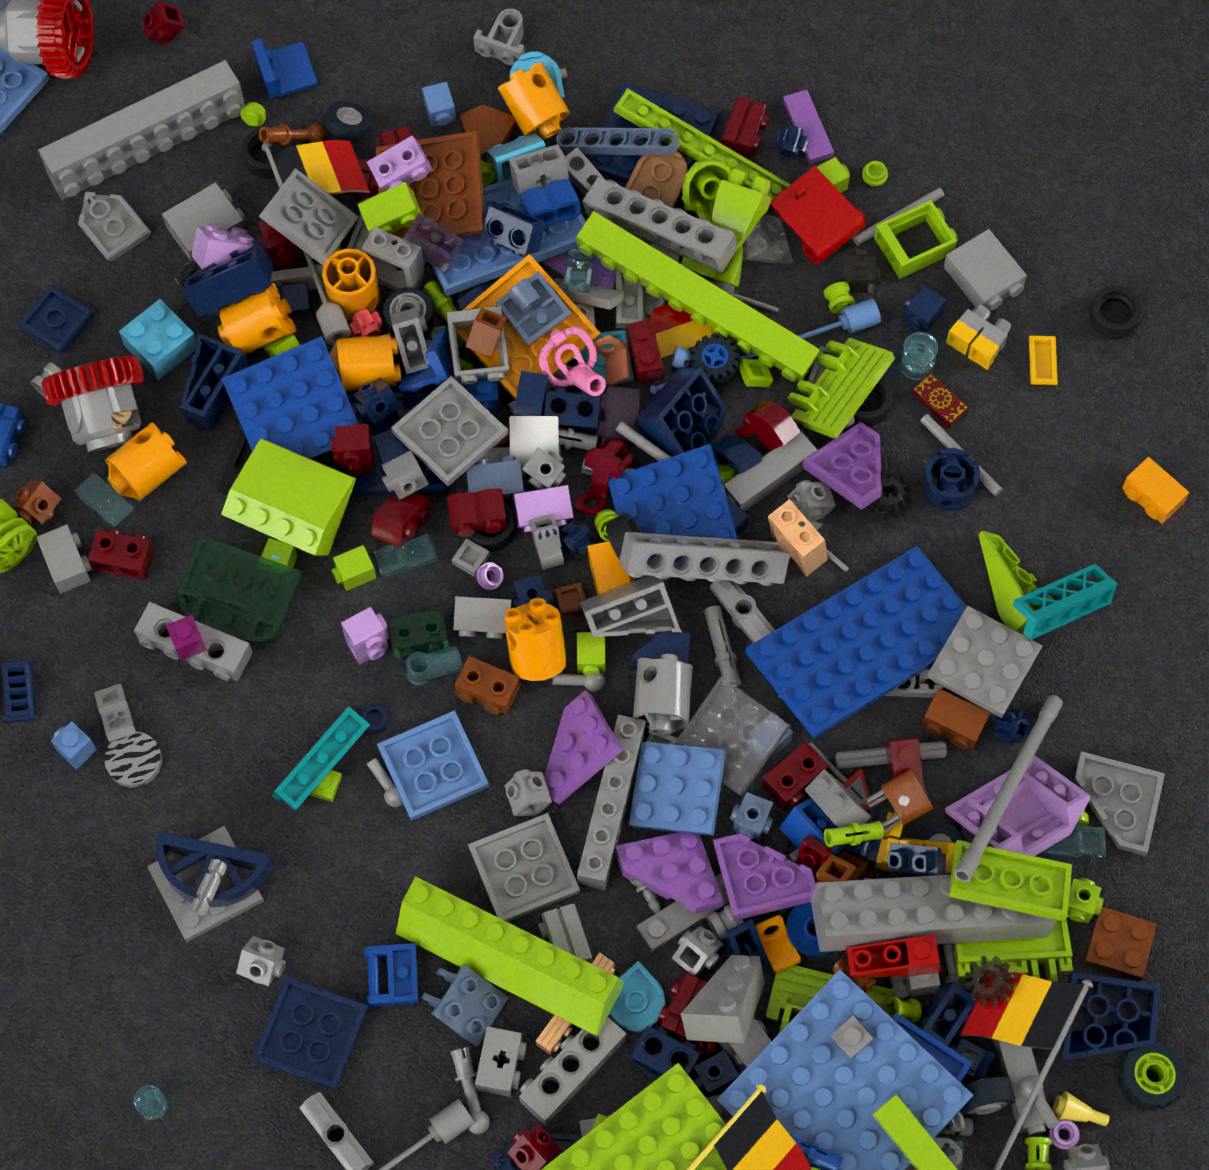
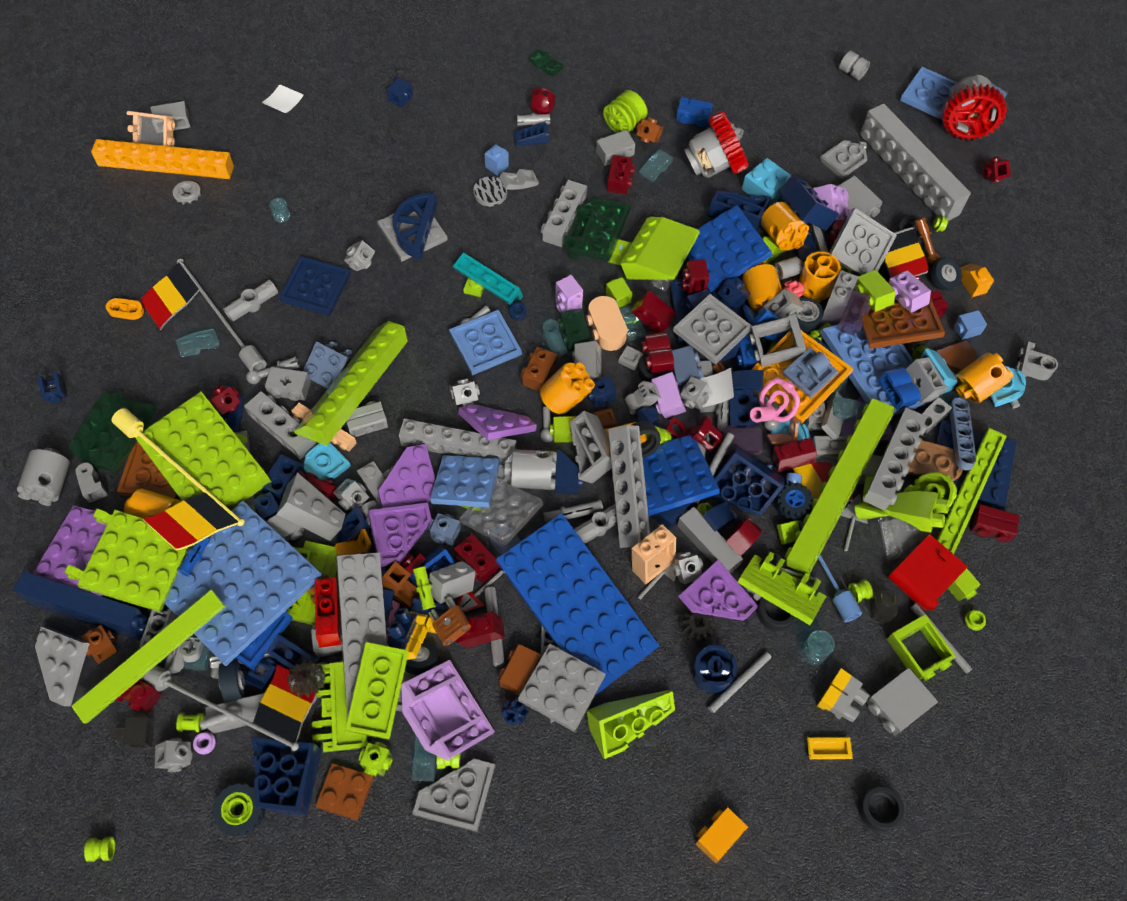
camera: 85 degrees right, 5 degrees down
(56, 320) = (774, 134): dark blue plate -> none
(143, 463) = (679, 177): light orange cylinder -> none
(186, 637) = (560, 199): magenta brick -> none
(208, 887) = (398, 217): light grey axle -> none
(284, 68) = (977, 237): blue bracket -> none
(355, 84) = (976, 279): none -> light orange slope
(401, 974) = (349, 330): blue plate -> none
(404, 475) = (679, 307): light grey brick -> none
(408, 587) = (606, 323): none -> light nougat brick
(486, 332) = (781, 334): dark orange brick -> none
(495, 573) = (618, 363): lavender plate -> none
(514, 223) = (873, 362): dark blue brick -> none
(524, 868) = (415, 394): light grey plate -> none
(791, 141) = (989, 555): dark blue gear -> none
(804, 115) = (1007, 571): medium lavender tile -> none
(851, 1037) = (269, 578): light grey plate -> none
(908, 1009) = (301, 627): lime bush -> none
(924, 309) = (859, 653): dark blue brick -> none
(940, 400) = (784, 666): tile -> none
(971, 858) = (390, 656): light grey piece -> none
(1072, 603) = (610, 757): teal fence -> none
(1072, 1109) = (220, 749): light yellow cone -> none

